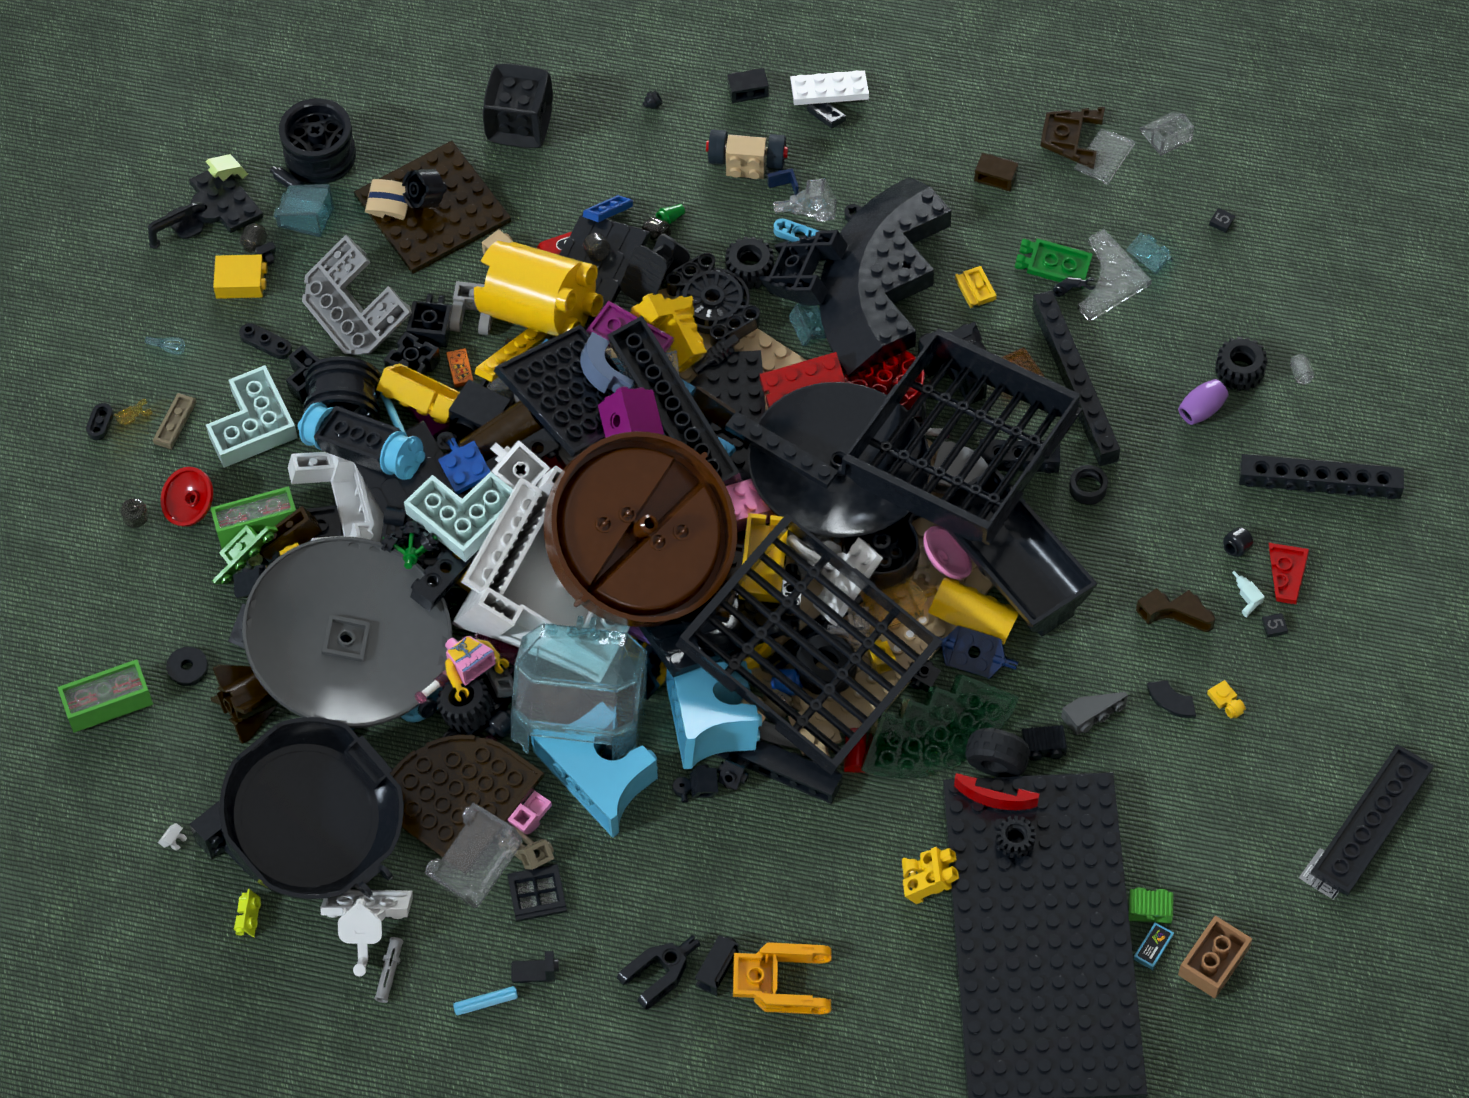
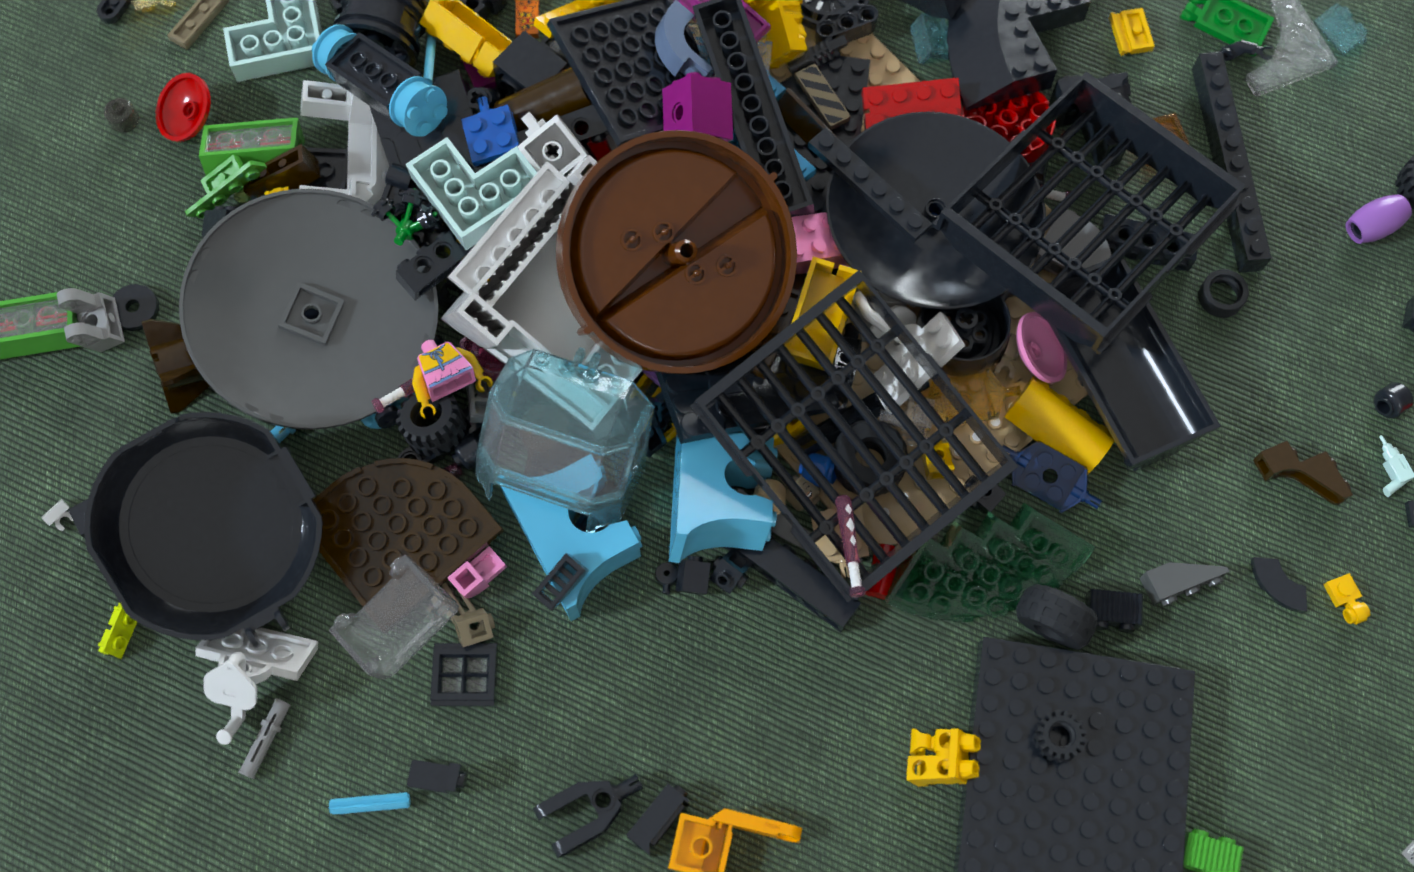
camera: 10 degrees right, 10 degrees up
(155, 673) = (97, 316): none -> light grey brick
(603, 781) = (567, 587): none -> black slope
(727, 388) = (822, 96): none -> dark tan tile
(821, 721) = (848, 535): none -> clear pink piece
(995, 799) = (1013, 659): red slope -> none

